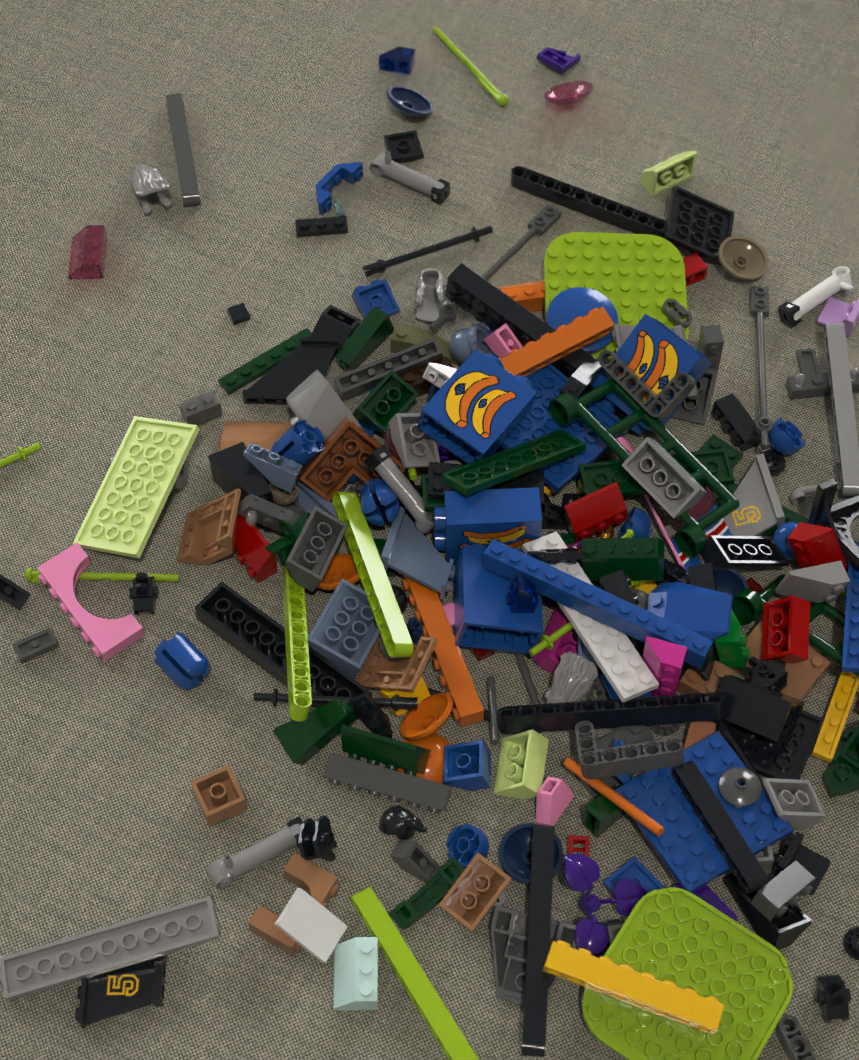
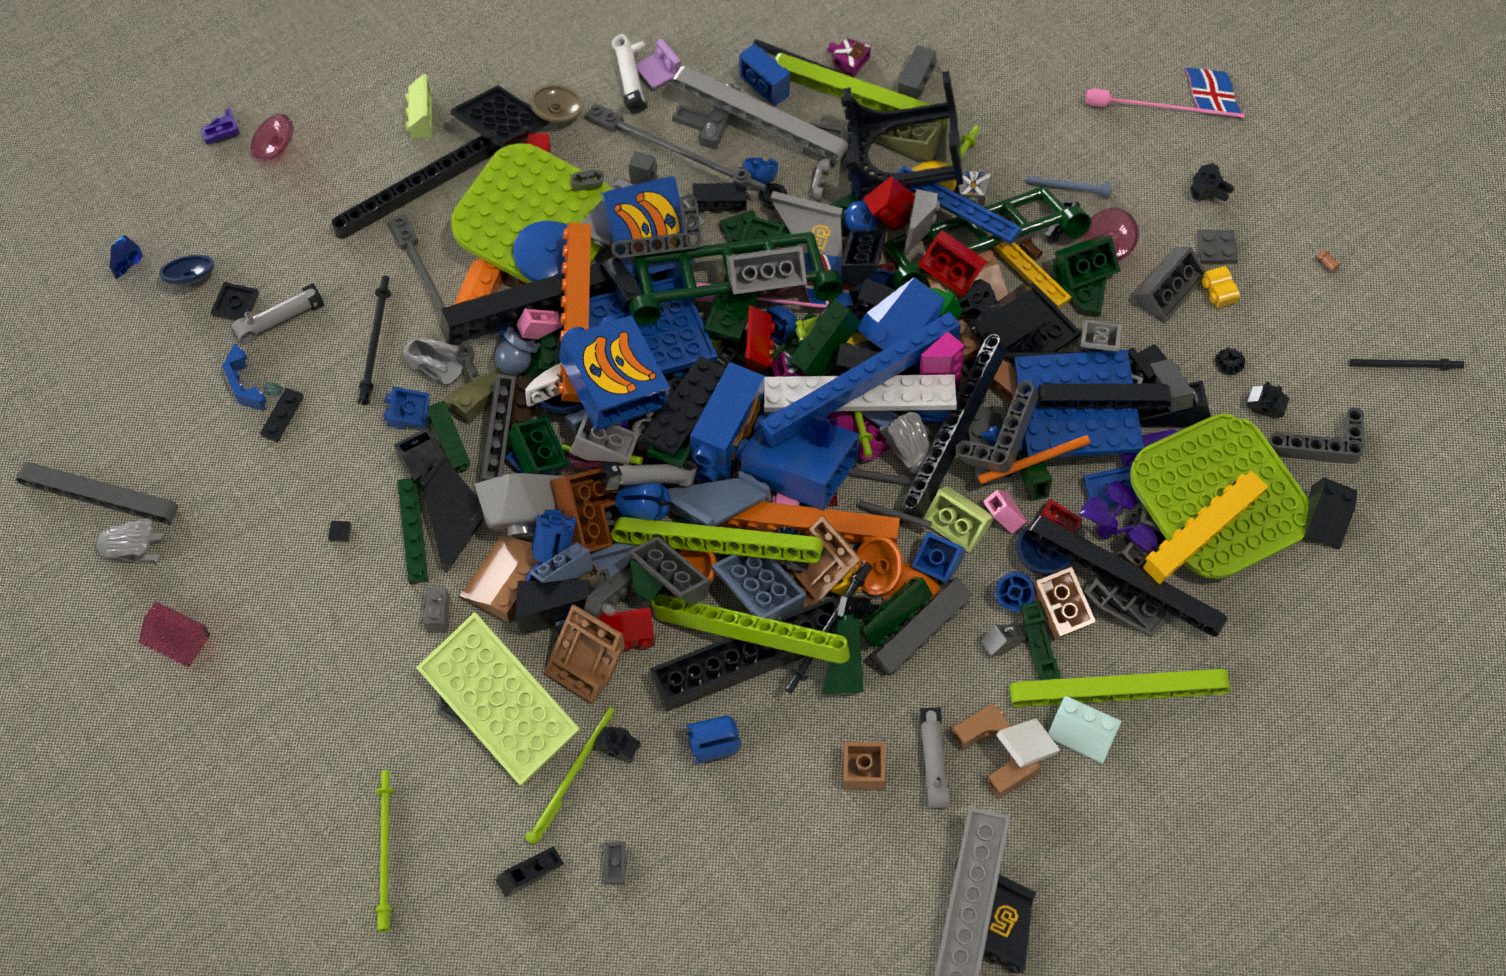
camera: 60 degrees left, 5 degrees up
(105, 635) = (561, 808): bright pink arch -> none
(282, 545) = (648, 595): dark green bracket -> none
(318, 839) = (952, 702): black hinge -> none
(400, 822) = (965, 633): black hair -> none
(502, 100) = (202, 199): lime bar -> none
(513, 462) = (685, 371): dark green plate -> none
(553, 556) = (796, 384): black hinge -> none
(740, 795) = (1074, 372): dark grey dish -> none

